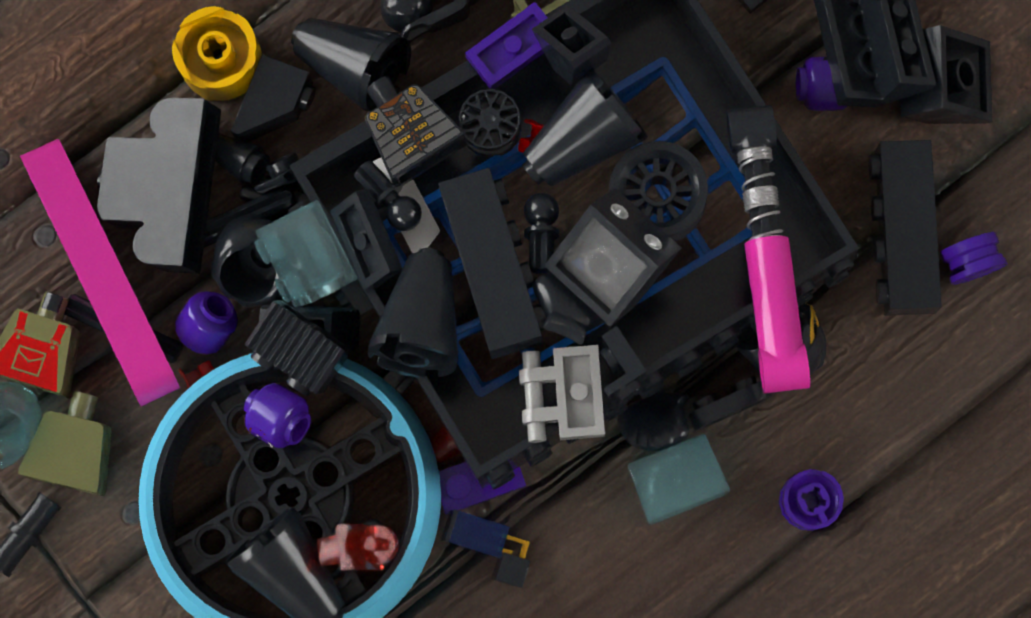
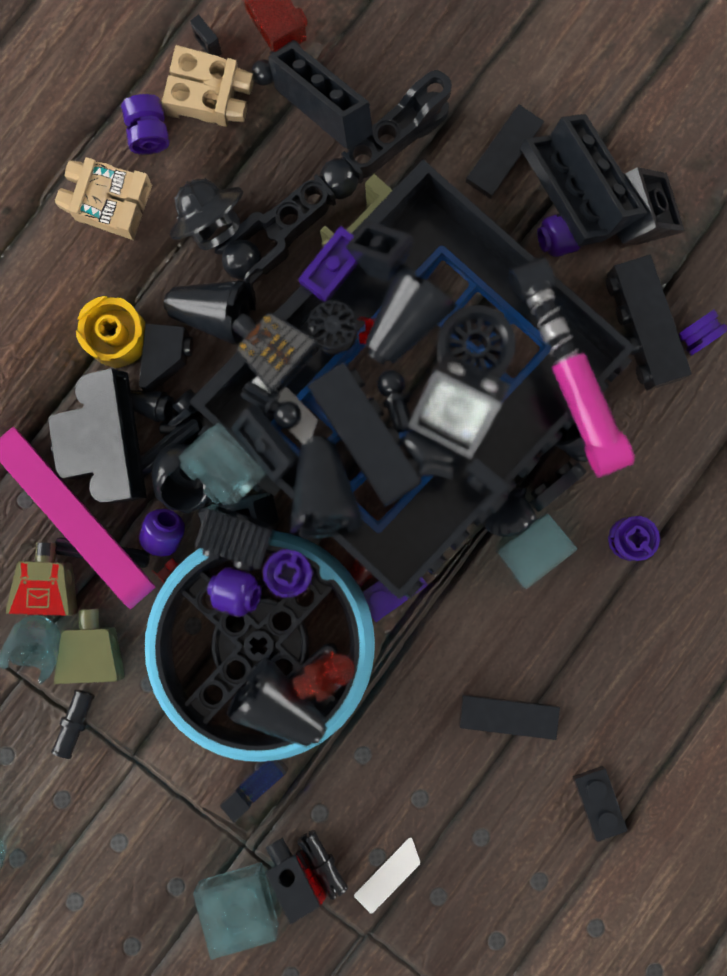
camera: 25 degrees left, 5 degrees up
(350, 411) = (287, 573): none -> dark purple wheel
(488, 539) = (413, 633): piece -> none
(577, 392) = (457, 513): light grey plate -> none

